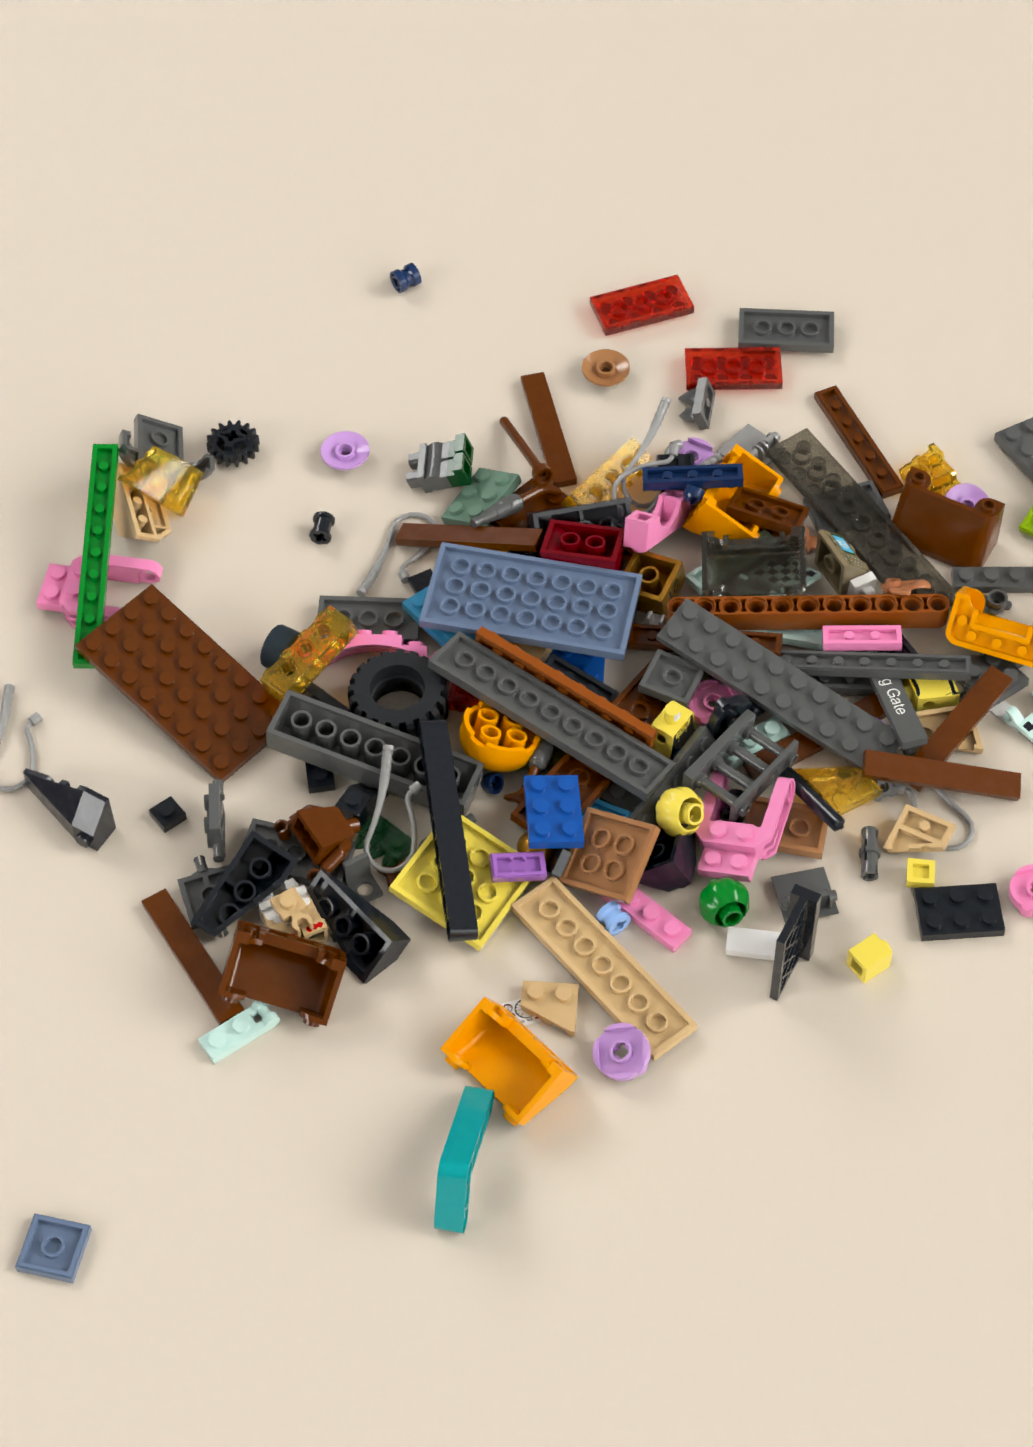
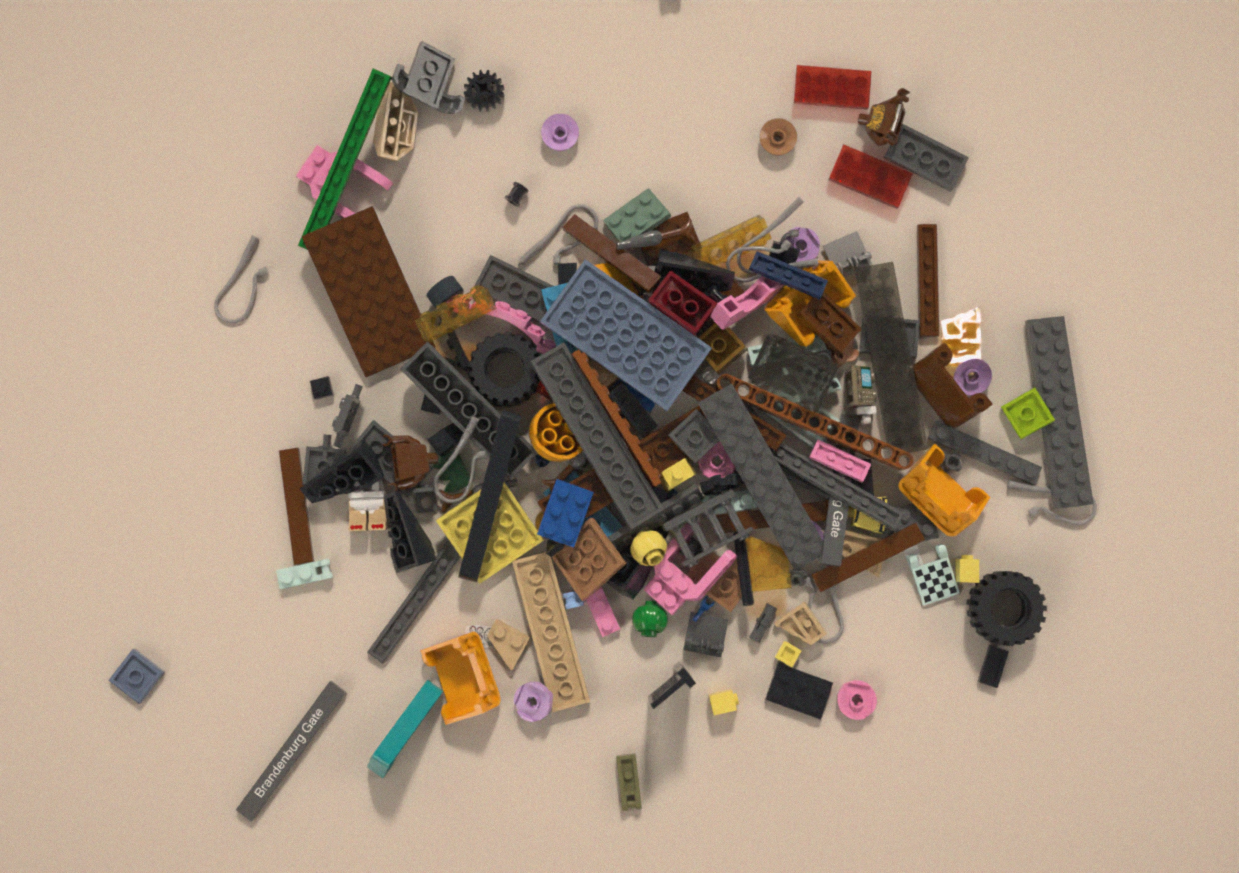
camera: 20 degrees right, 30 degrees up
(79, 810) = (261, 368): black wedge -> none
(164, 479) = (418, 110): clear yellow slope -> none
(283, 972) = (345, 551): reddish brown windscreen -> none
(291, 907) = (365, 507): tan plate -> none
(315, 1256) = (291, 751): none -> dark grey tile
(404, 1007) = (414, 603): none -> dark grey tile
(441, 465) = (621, 177): hips -> none
(517, 866) = (525, 539): medium lavender plate -> none
(540, 471) = (685, 221): reddish brown piece -> none
(548, 429) = (713, 173): reddish brown tile -> none
(693, 494) = (780, 291): dark blue hinge -> none
(702, 399) = (835, 193): dark grey tile -> none
(720, 308) = (885, 119): none -> reddish brown torso
(751, 943) = (656, 655): white tile -> none
(785, 863) = (703, 607): none -> blue hand
(799, 1101) = (628, 781): none -> olive plate
(895, 586) = (890, 431): nougat plate -> none
(941, 775) = (838, 590): reddish brown tile -> none

